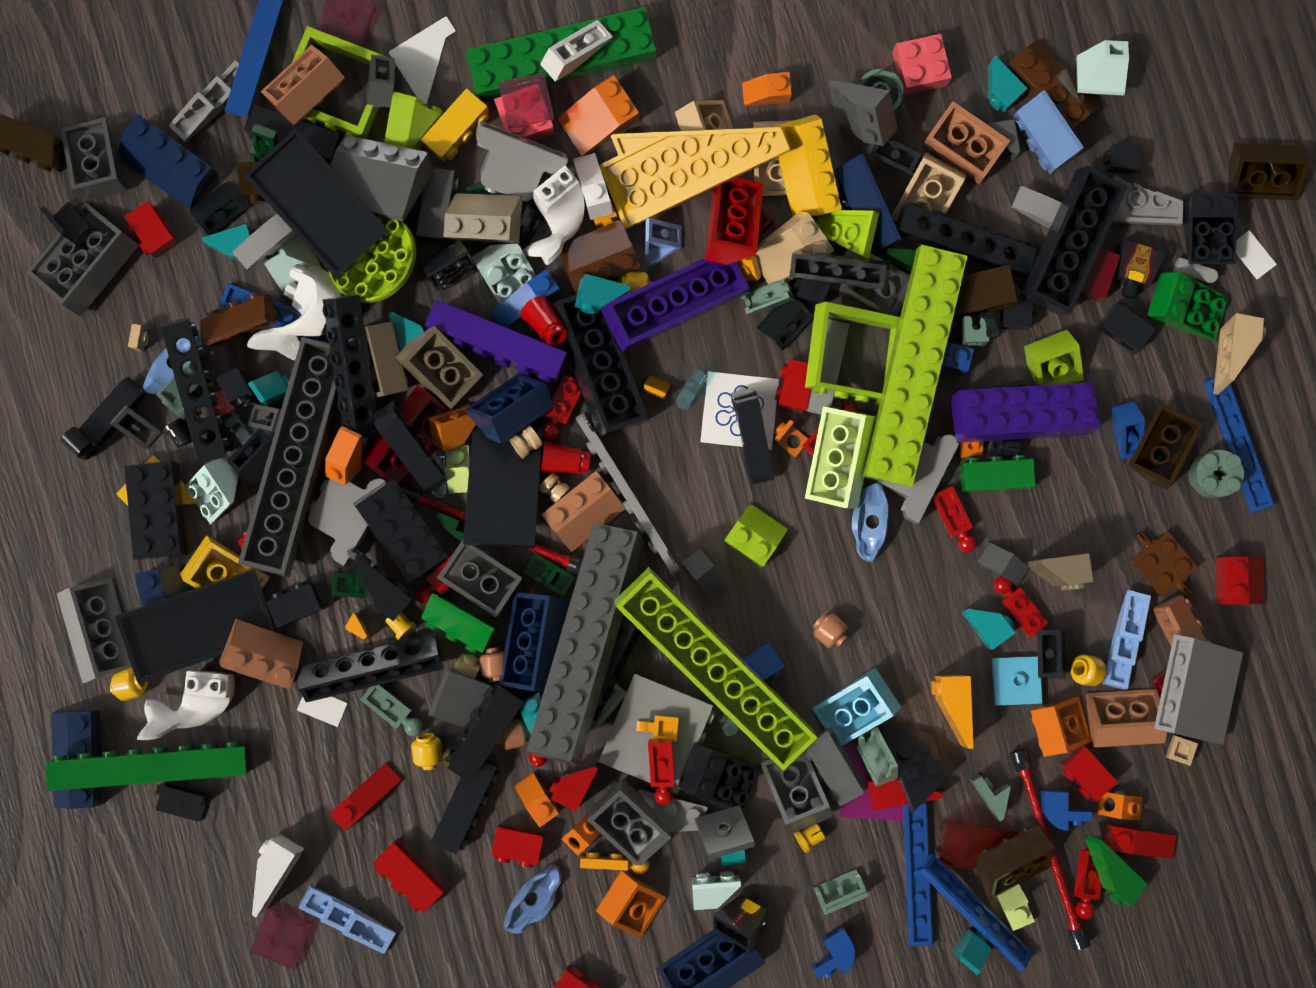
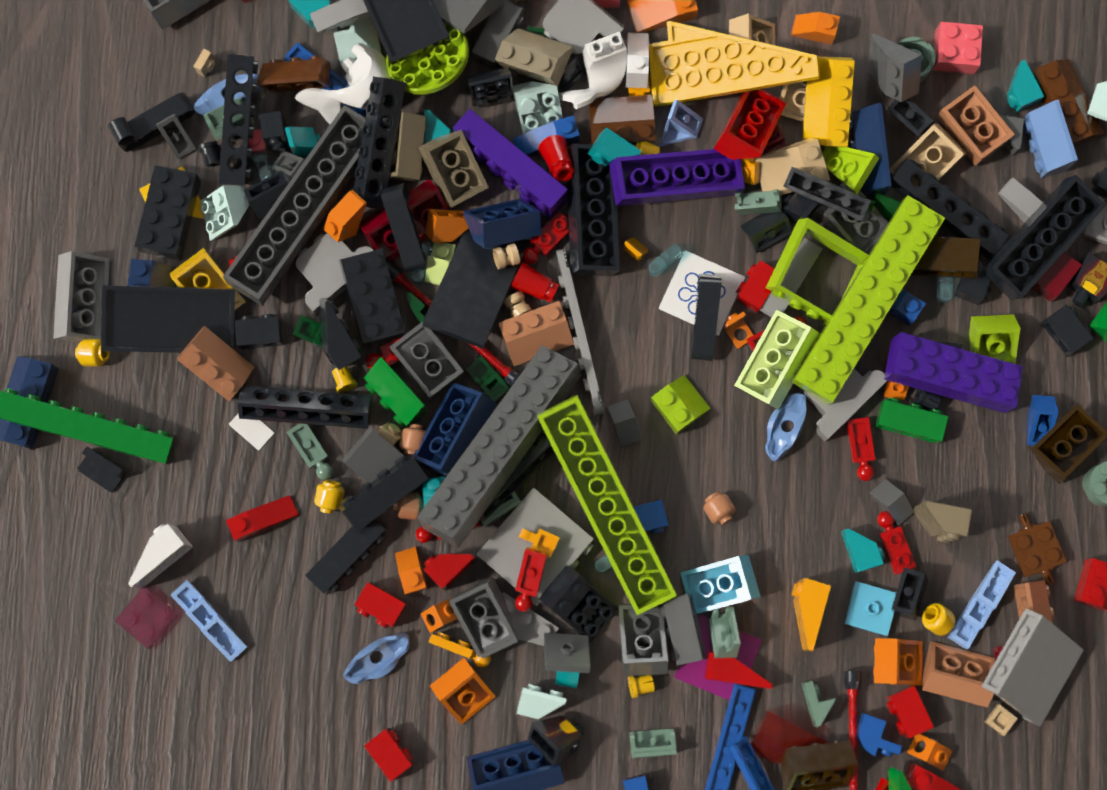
camera: 20 degrees right, 5 degrees down
(203, 700) = (152, 386): white hips -> none
(357, 626) = (305, 367): light orange slope -> none
(408, 877) = (275, 600): red brick -> none
(917, 760) = (759, 649): black wing -> none
(971, 336) = (927, 292): sand green hinge -> none

